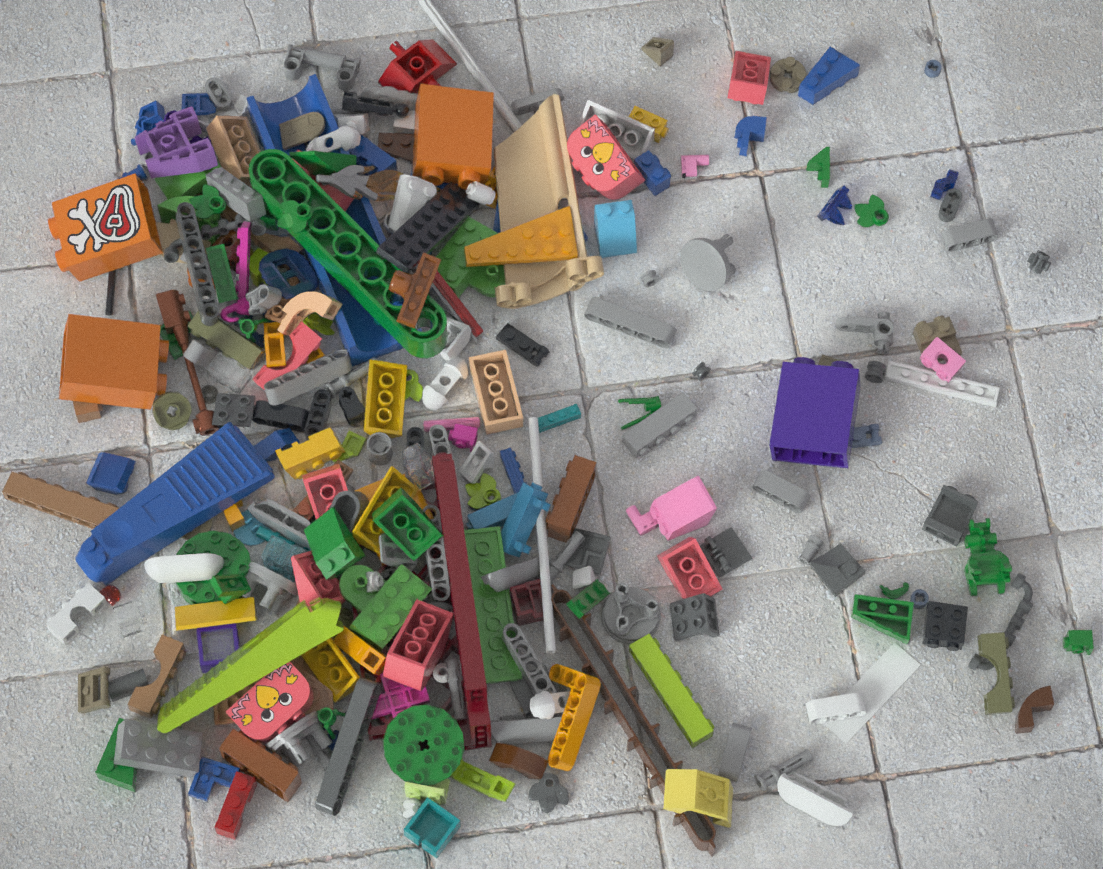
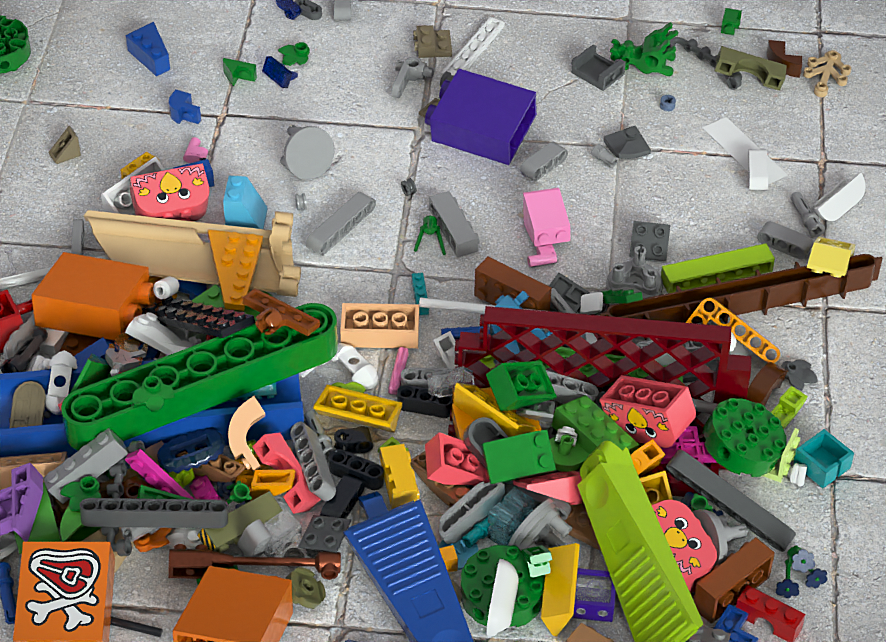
camera: 75 degrees left, 20 degrees down
(263, 299) = (215, 473): light grey piece -> none
(306, 820) = (802, 561): none -> dark blue plant
(379, 448) = (409, 424): light grey wheel -> none
(463, 436) = (418, 357): dark pink brick -> none
(522, 344) = (336, 299): black plate -> none
(689, 569) = (601, 233): coral slope -> none
(725, 552) = (591, 209): dark grey hinge -> none
(749, 77) = (127, 96): coral slope -> none
(790, 66) = (127, 72): dark tan plate -> none
(884, 615) = (682, 120): green wedge -> none
(893, 594) = (658, 116): green piece -> none
(939, 349) = (456, 35): bright pink brick -> none
(945, 625) = (699, 89): black brick -> none
(1033, 760) = (831, 58): none -> tan plant

